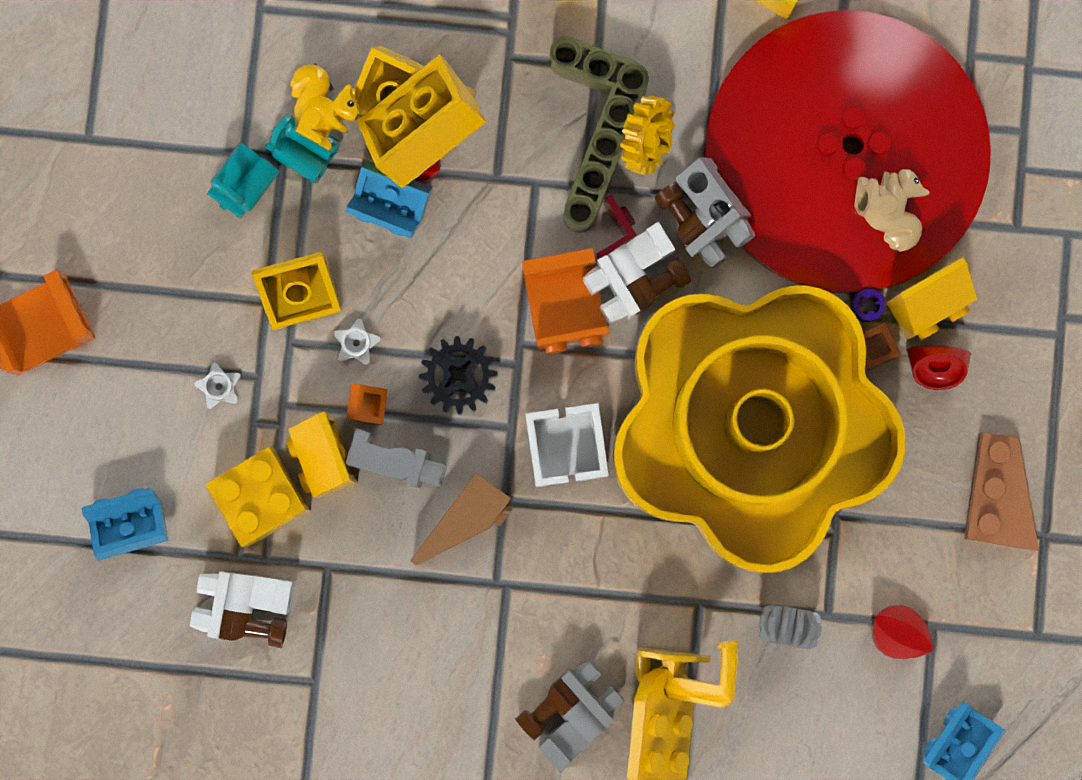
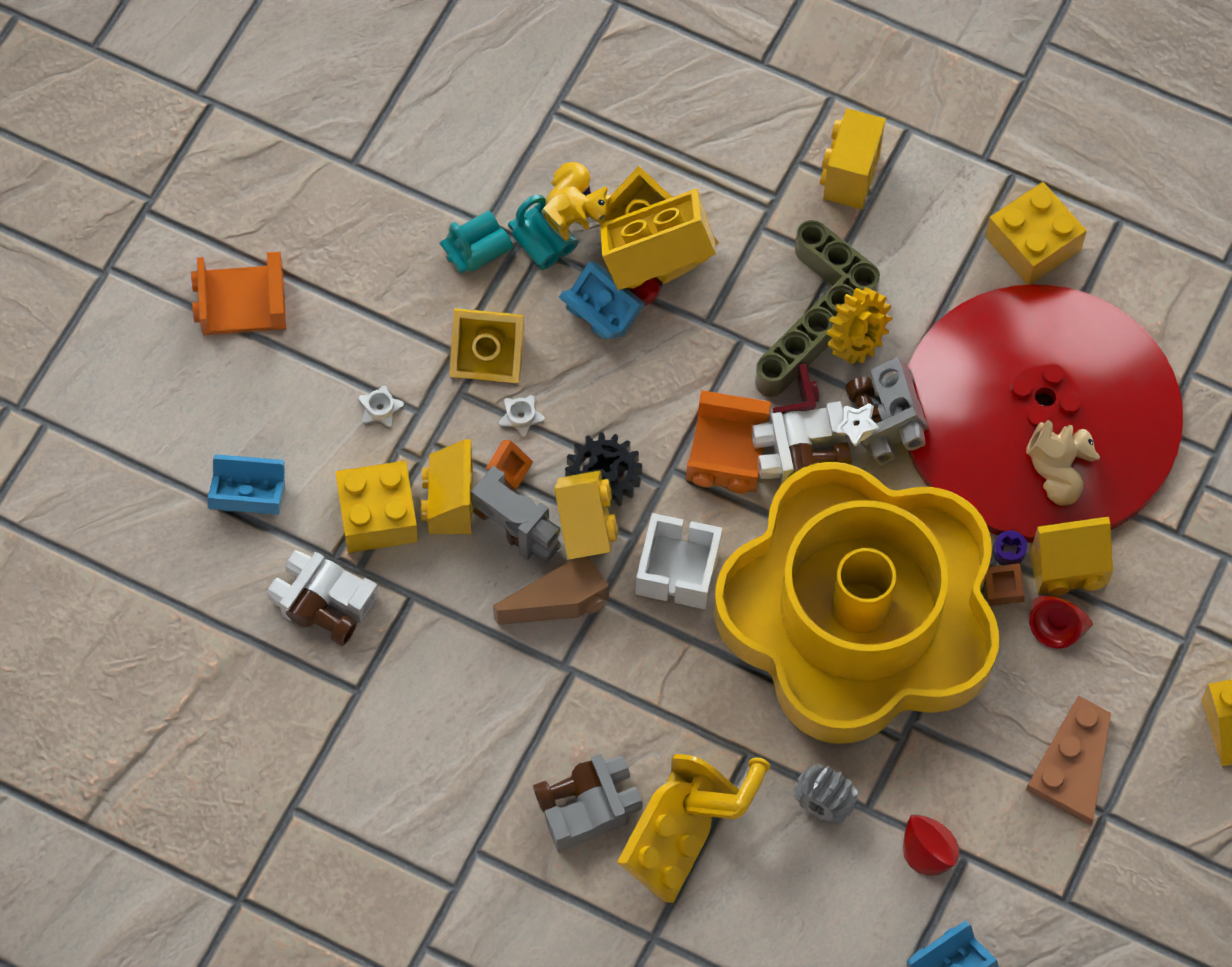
camera: 20 degrees right, 20 degrees down
(462, 440) = (585, 514): none -> yellow brick
(694, 241) = (863, 430): none -> white plate

